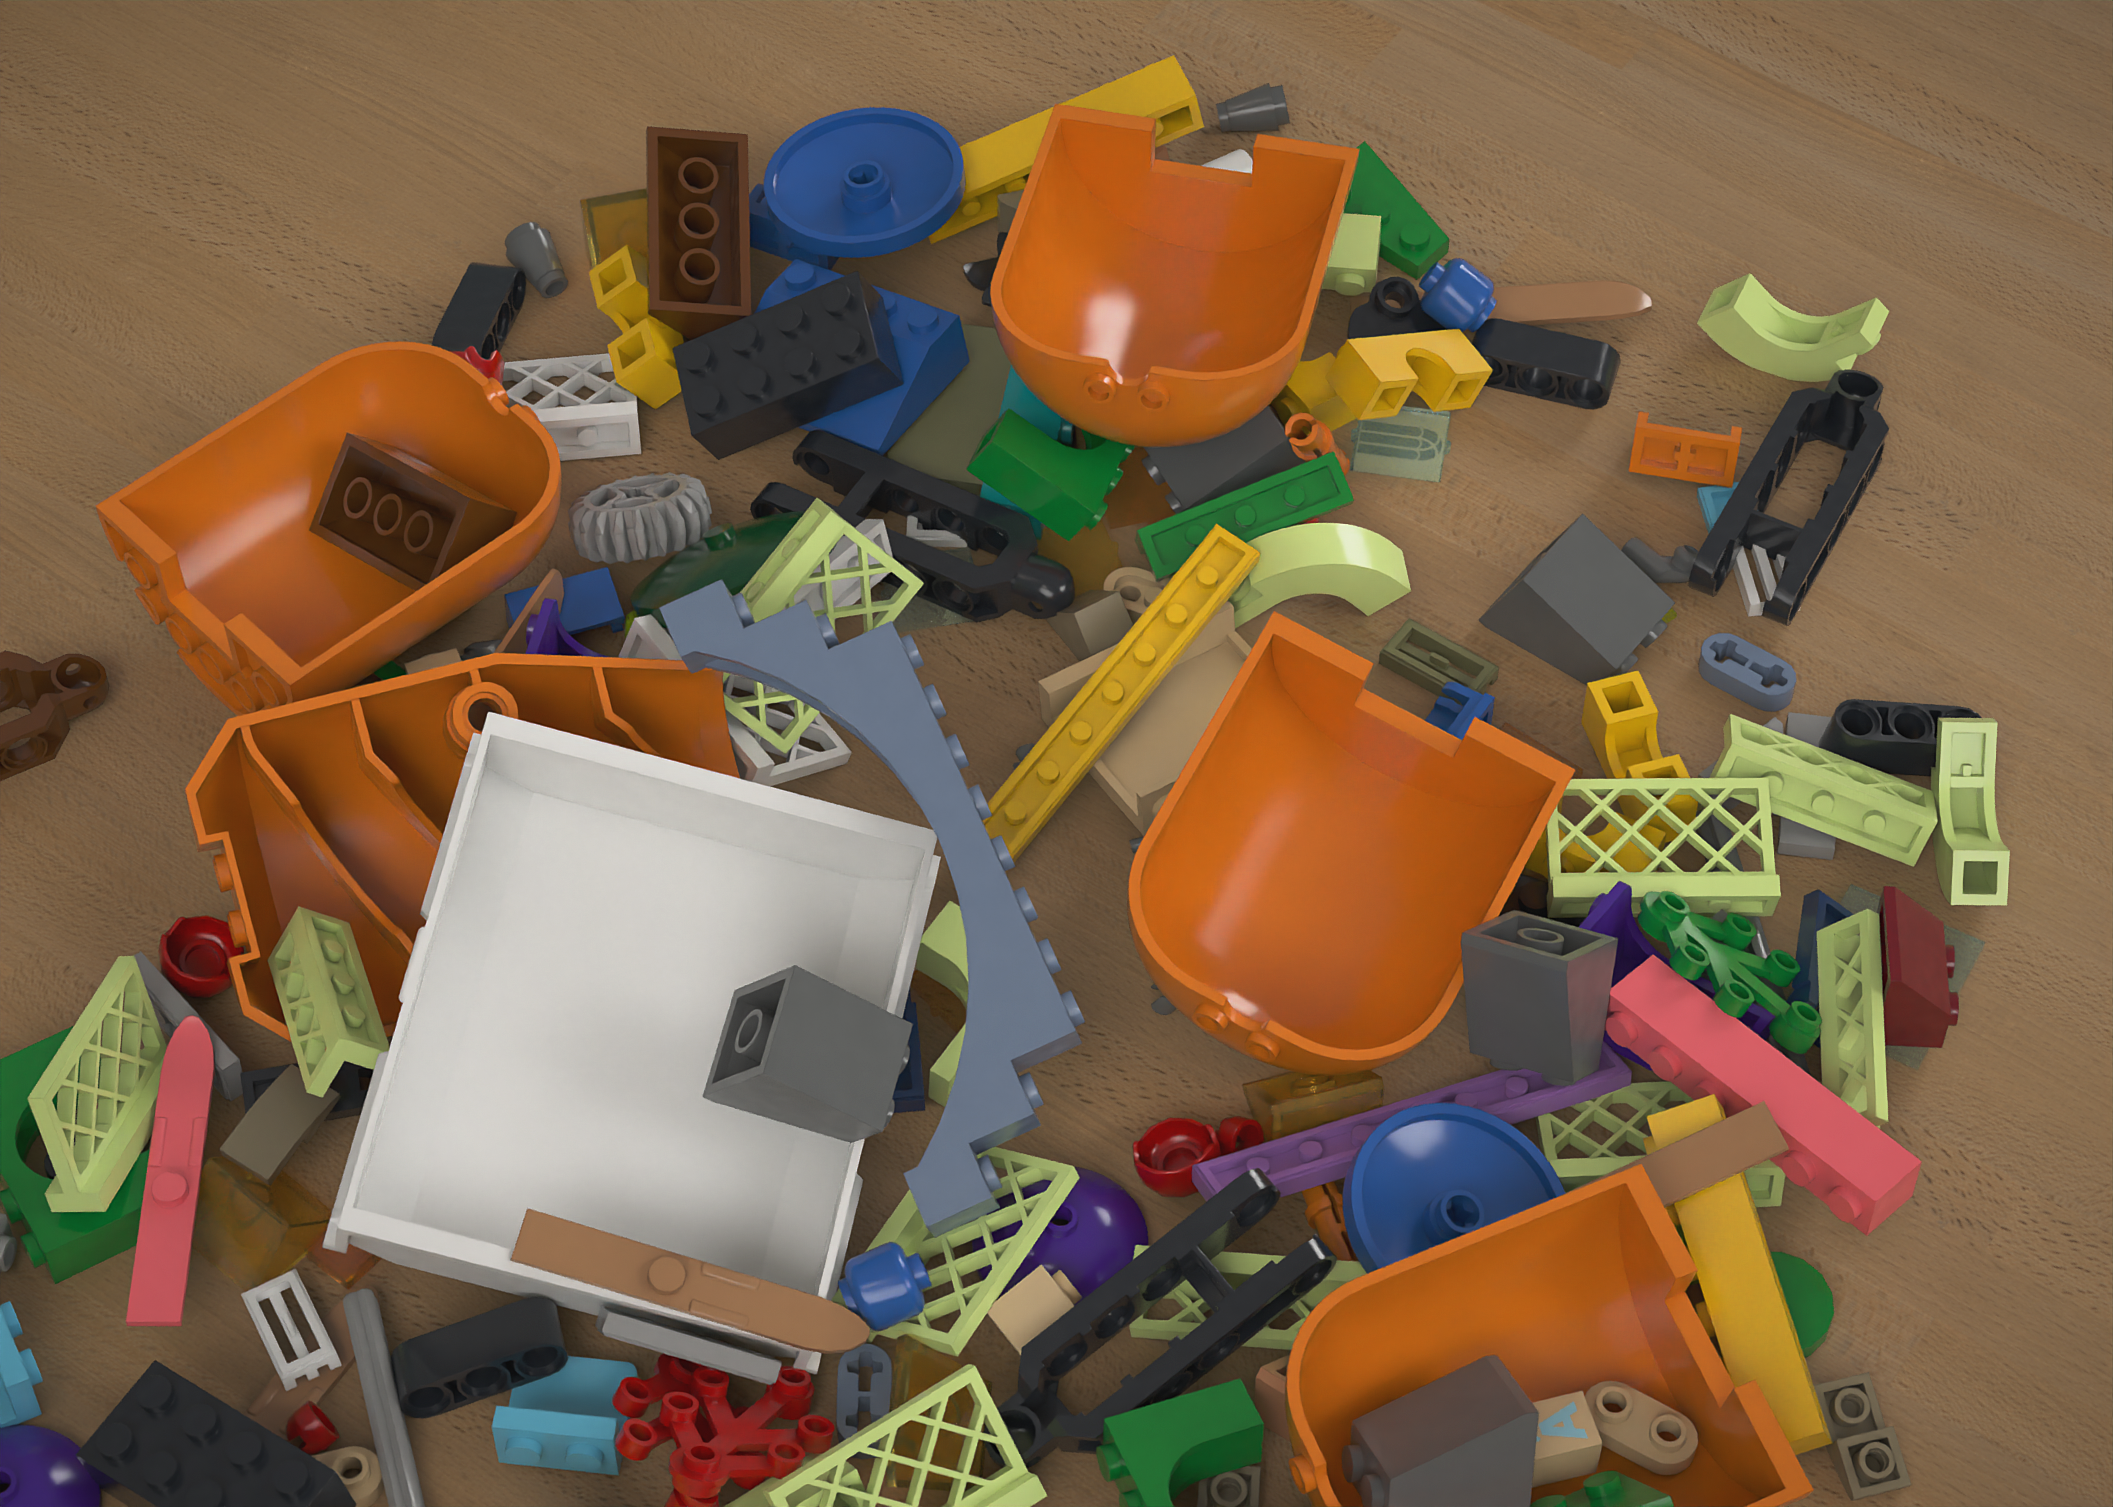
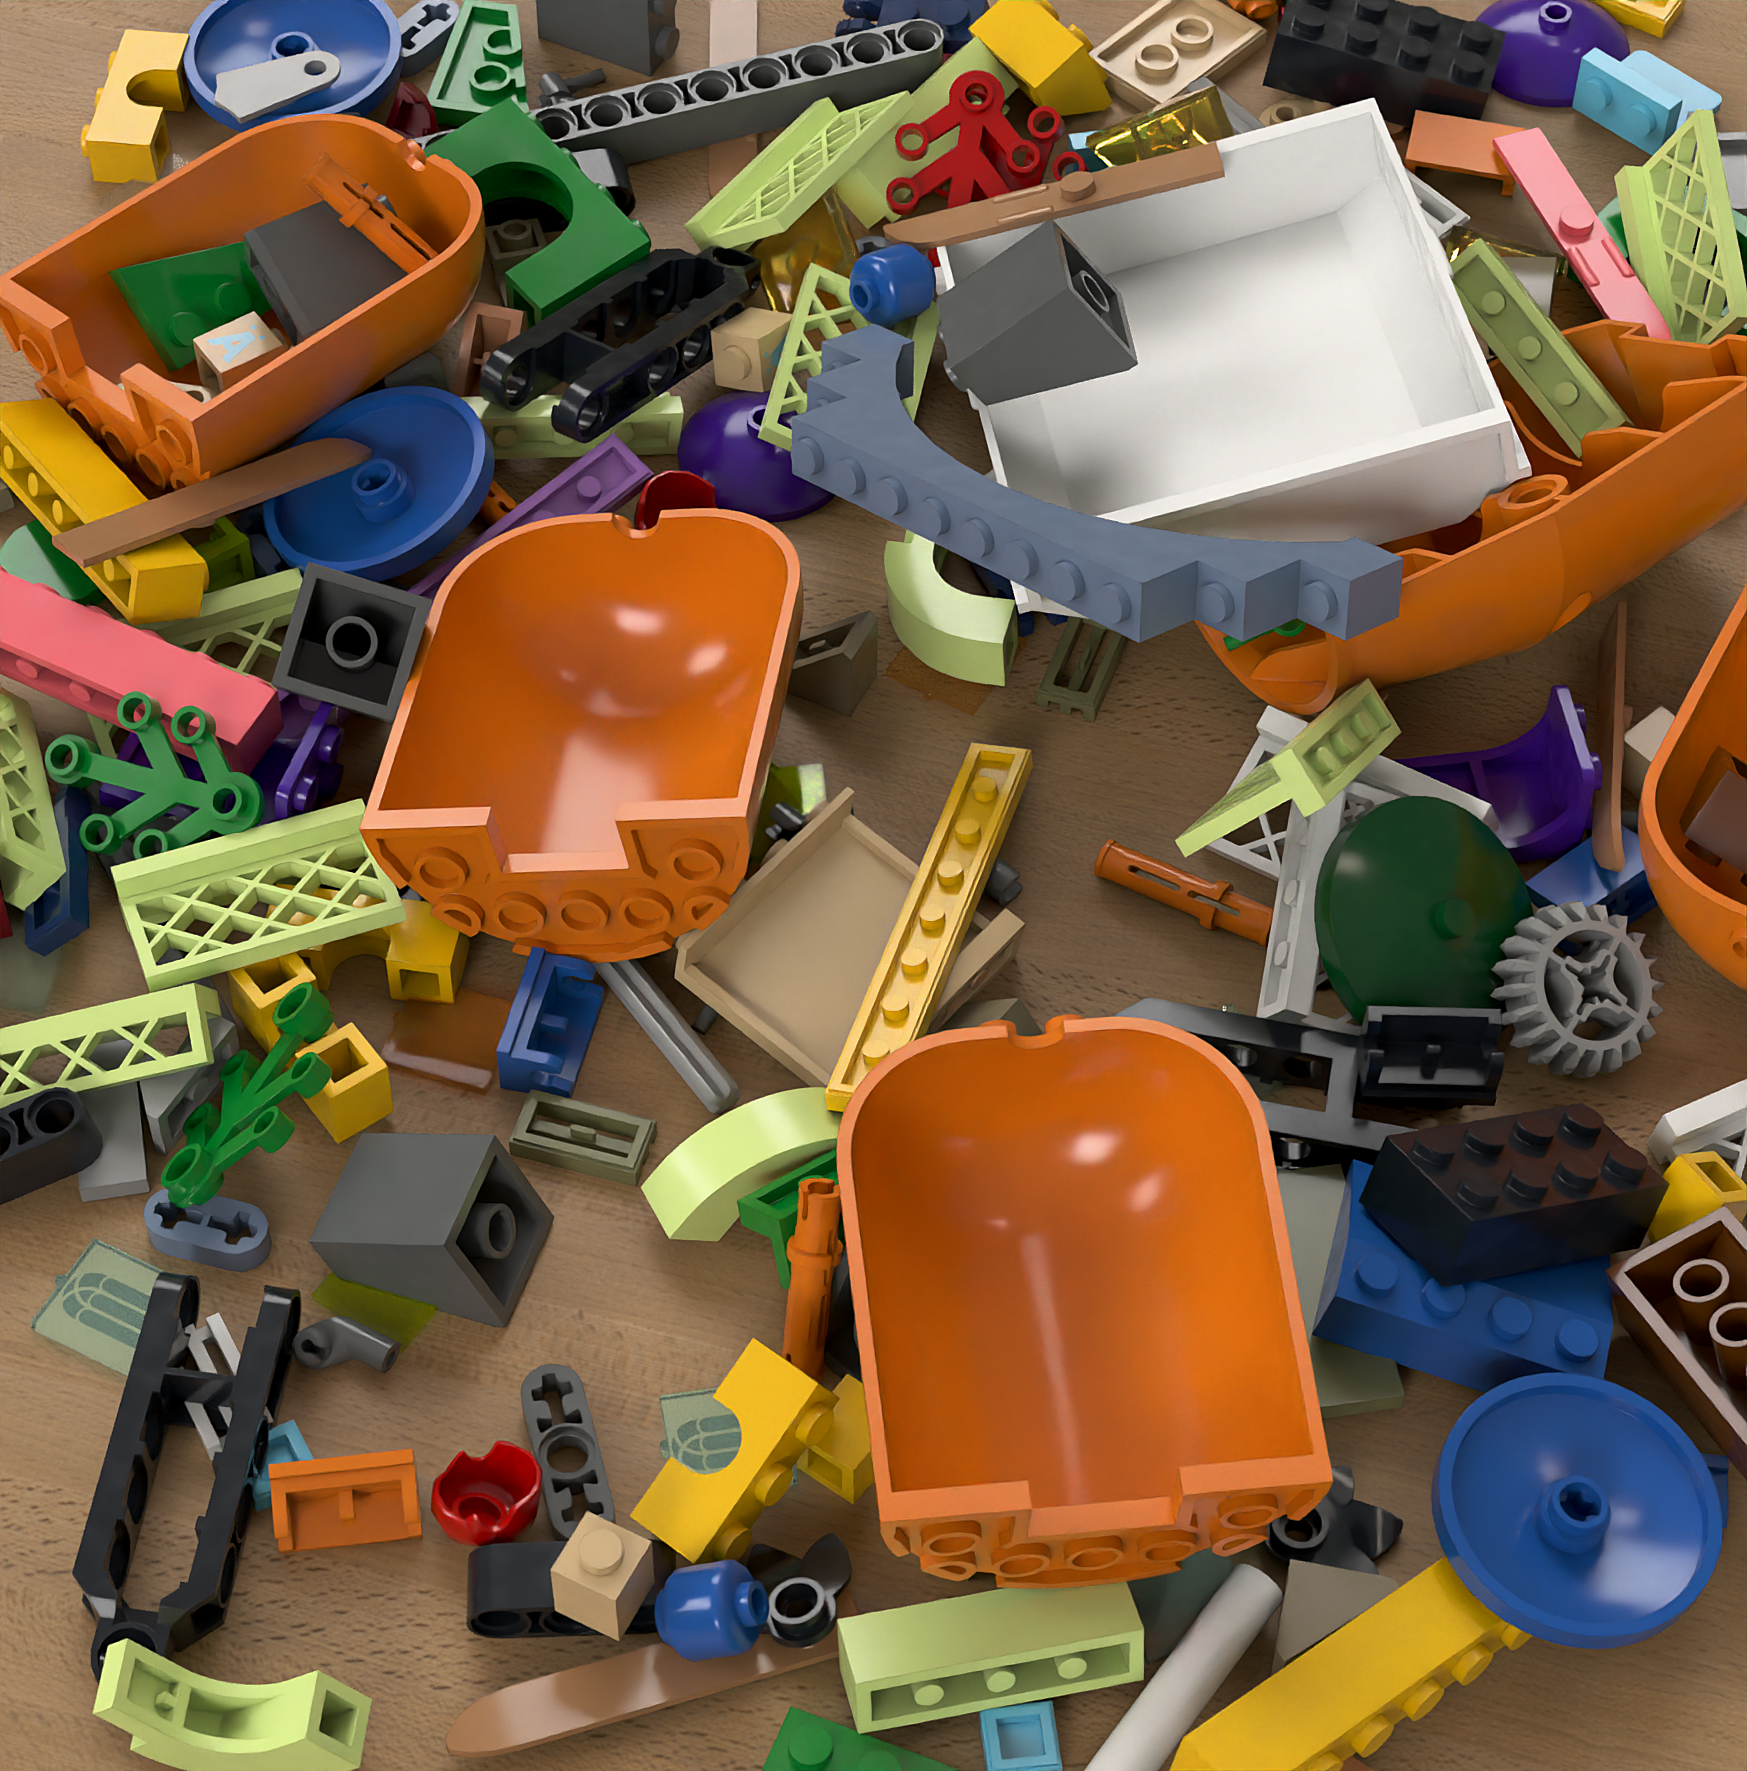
camera: 160 degrees right, 0 degrees up
(207, 1356) = (1458, 147): none -> orange hinge
(529, 1378) = (1164, 129): none -> clear yellow slope
(787, 478) = (1430, 1055): none -> black hinge
(1098, 979) = (837, 663): none -> dark tan slope
(1406, 1428) = (367, 214): none -> orange pin
(1508, 465) = (575, 1432): none -> dark grey beam
(1527, 307) = (603, 1575): none -> tan brick
(1586, 421) = (488, 1496): none -> red hair
(1750, 676) = (251, 1097): none -> green plant
(1829, 645) = (99, 1305): none -> clear light blue piece

